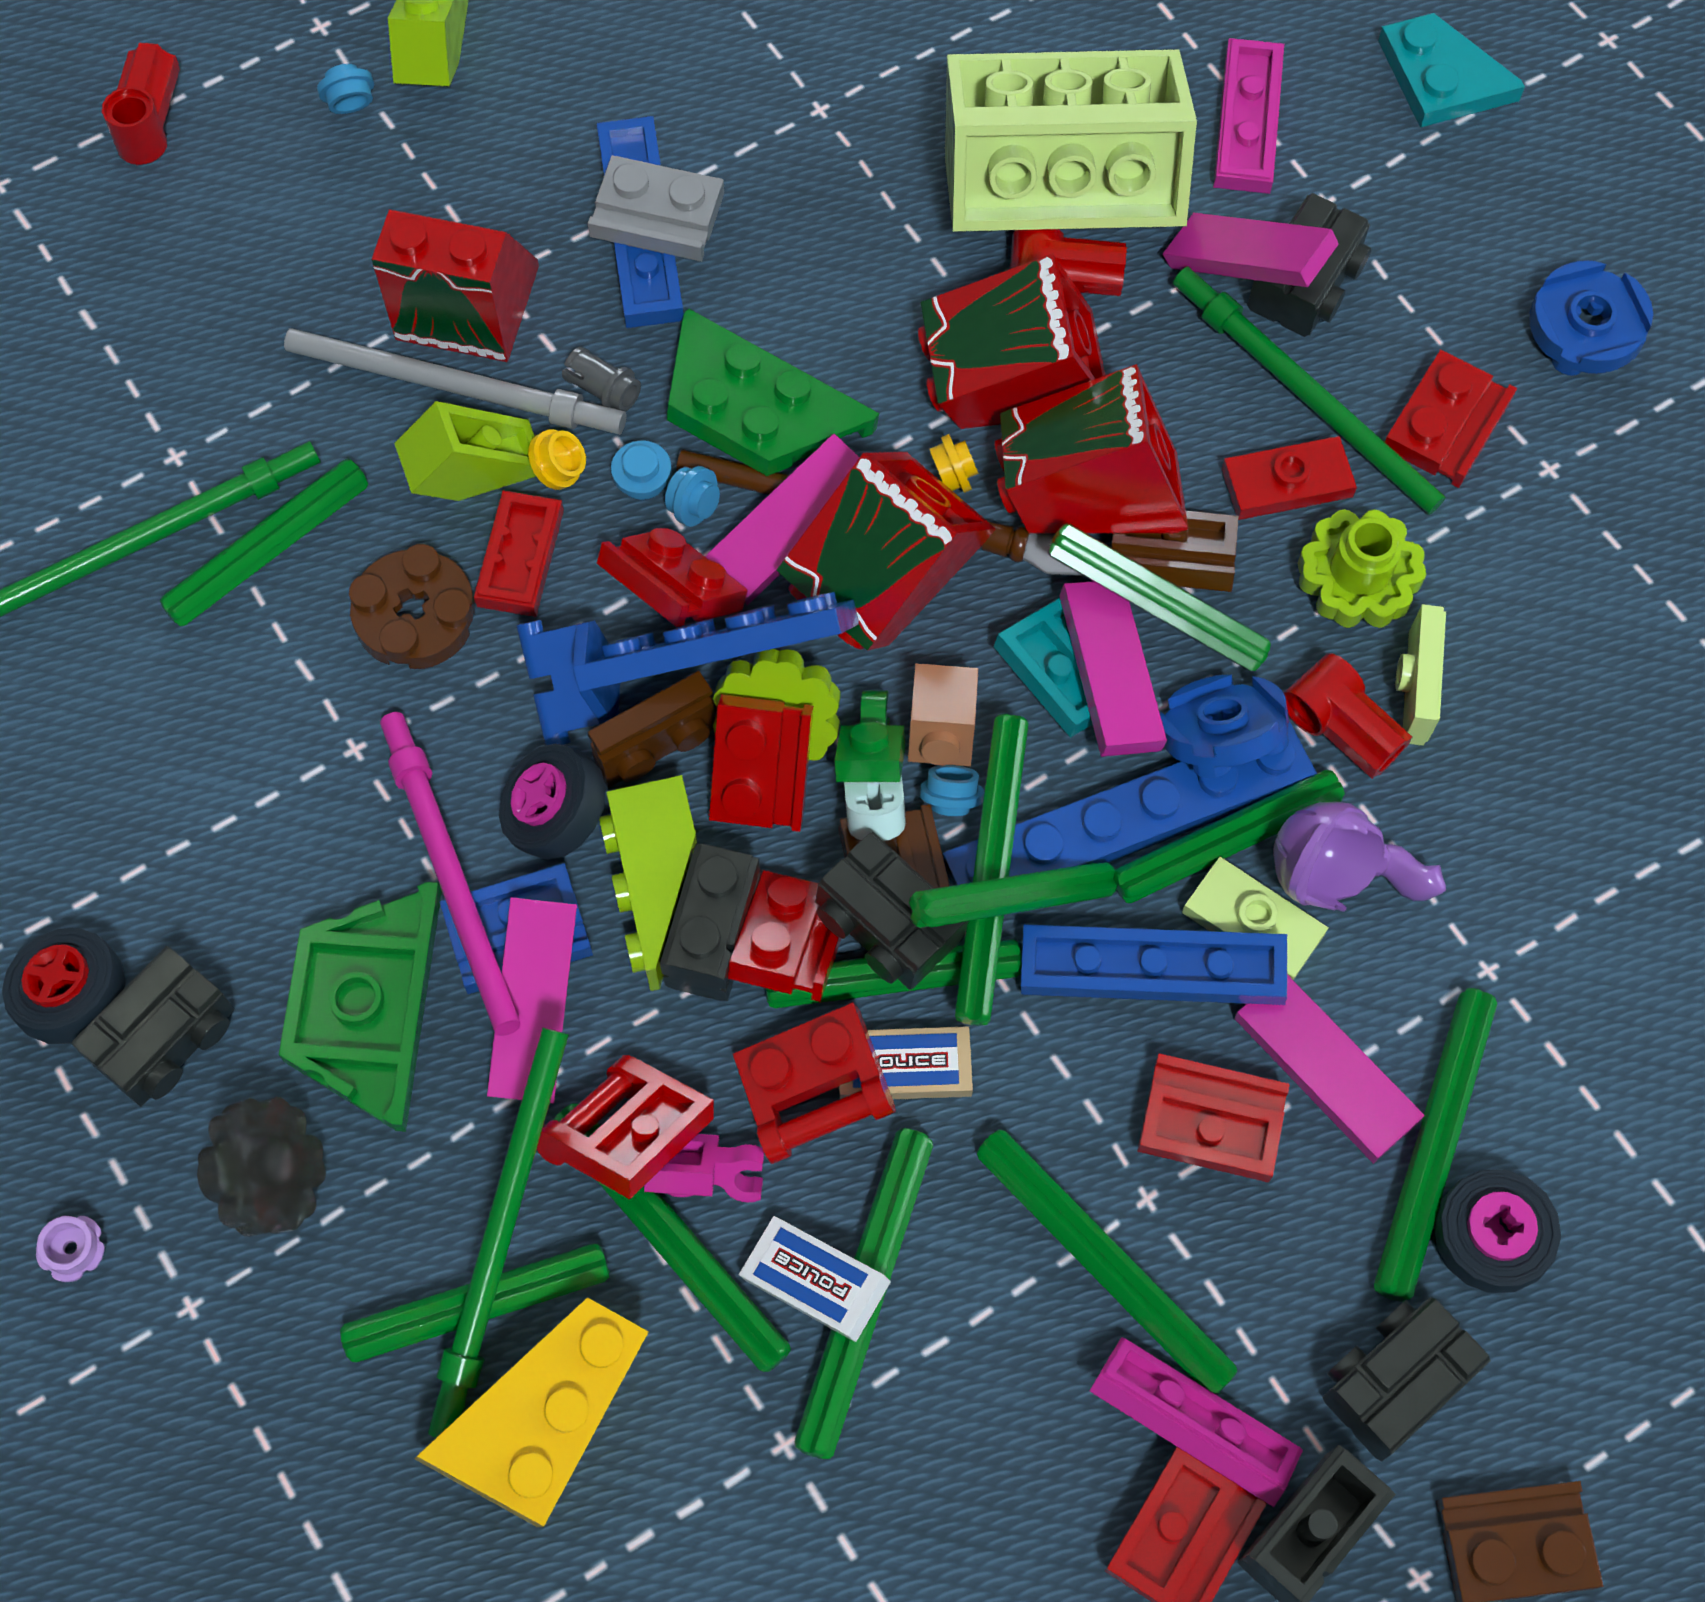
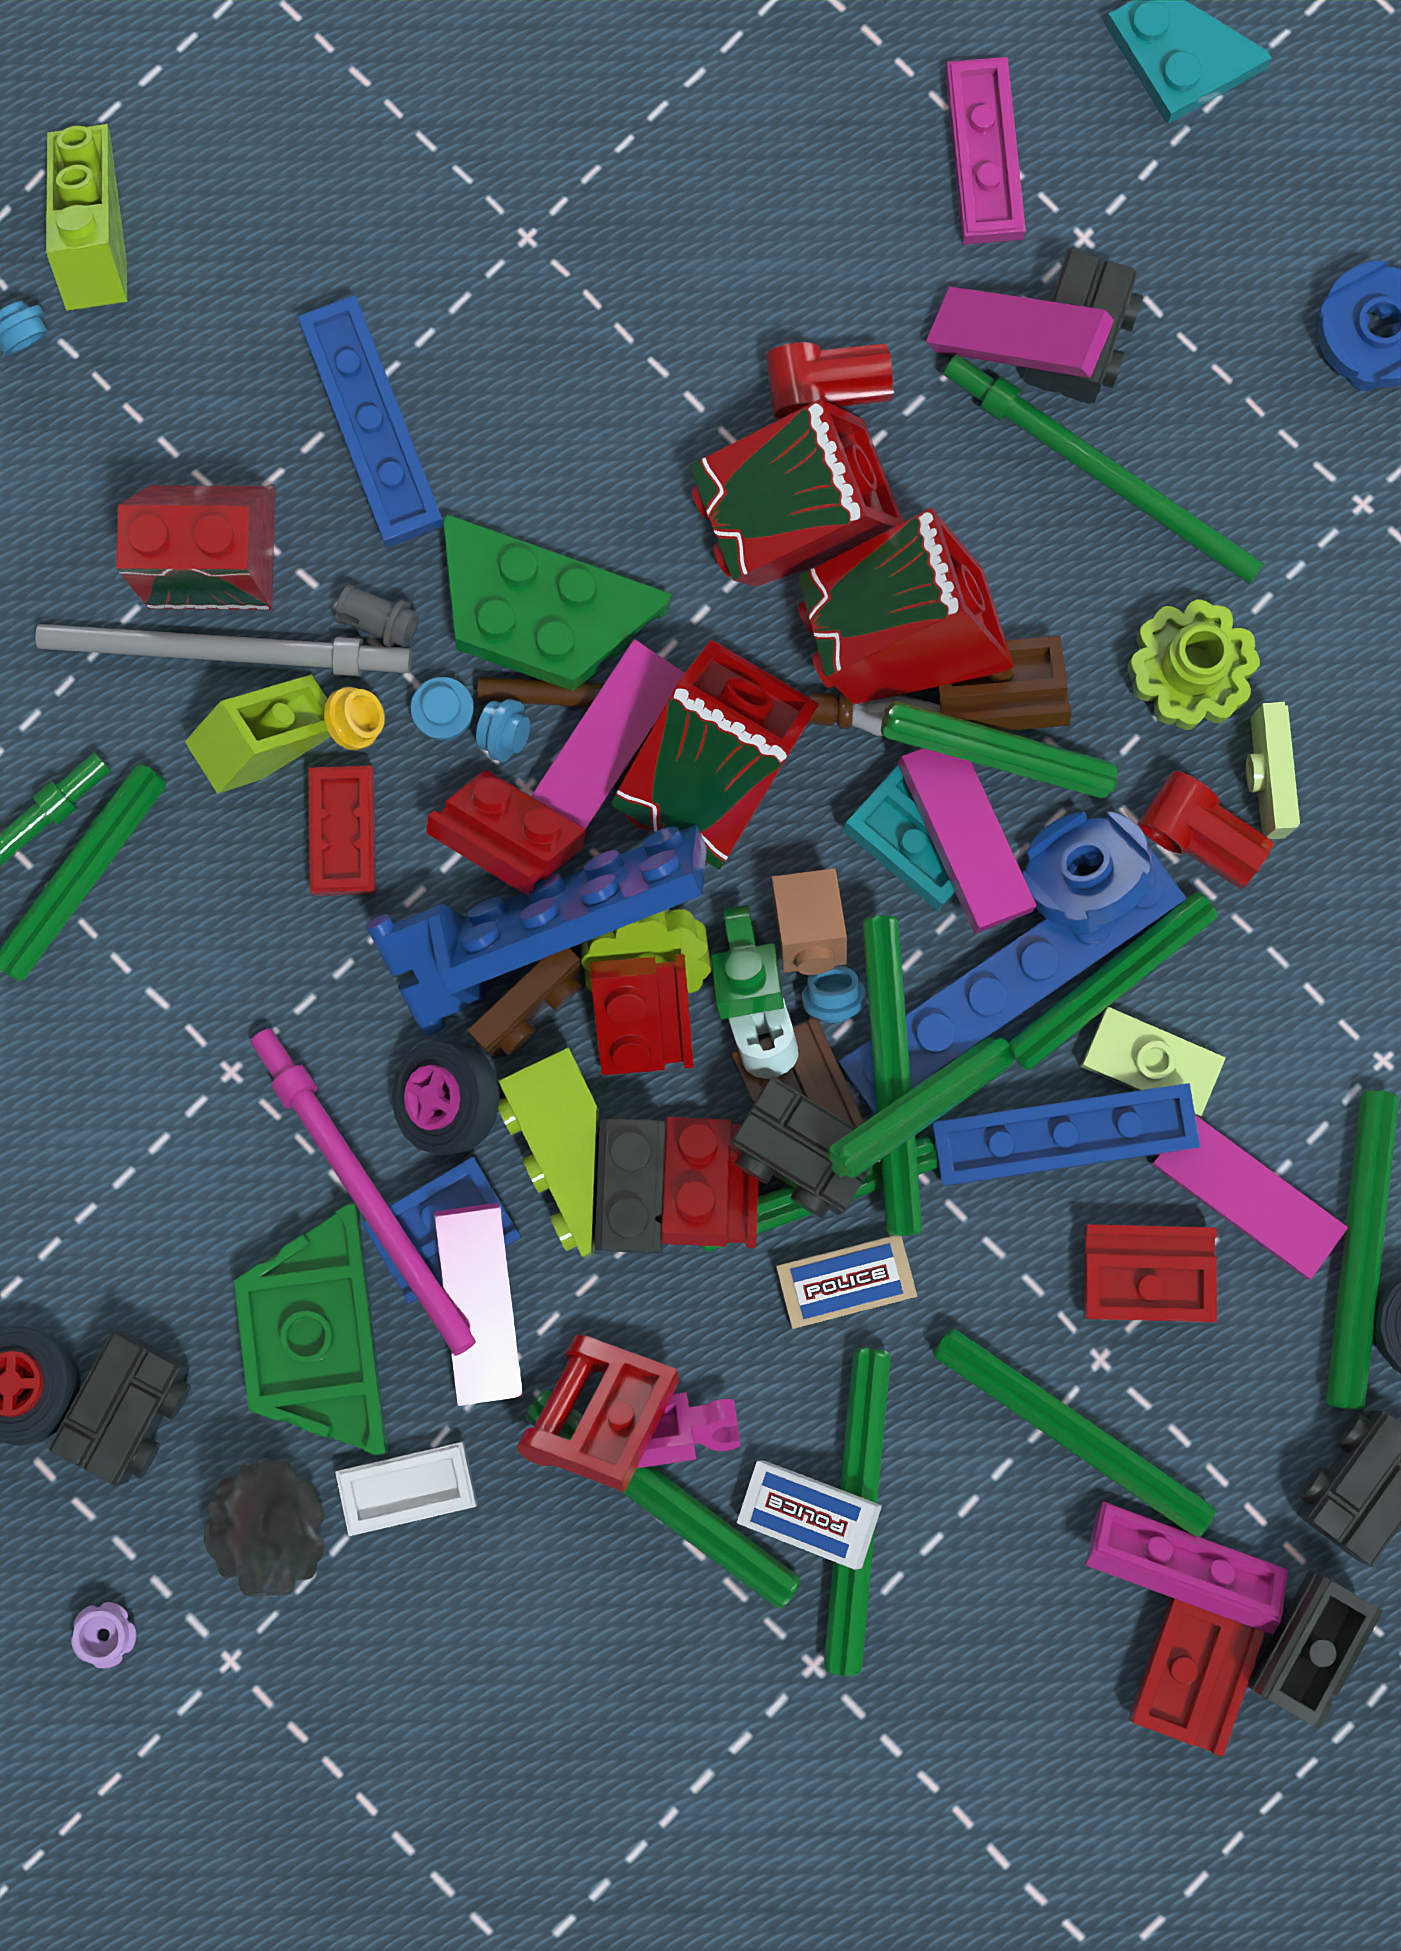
camera: 10 degrees left, 15 degrees up
(404, 576) = (246, 875): reddish brown plate -> none
(414, 1171) = (406, 1488): none -> white tile
(442, 1311) = (496, 1602): green axle -> none
(461, 1364) = (501, 1663): green bar -> none
(540, 1415) = (588, 1703): yellow wedge -> none
(656, 208) = (387, 409): light grey plate -> none
(804, 1065) = (755, 1306): red plate -> none
(954, 463) = (760, 637): yellow plate -> none
(1068, 140) = (806, 246): yellowish green brick -> none
(1288, 478) = (1102, 575): red plate -> none
(1336, 852) = (1221, 982): medium lavender piece -> none
(1449, 418) = (1253, 470): red plate -> none

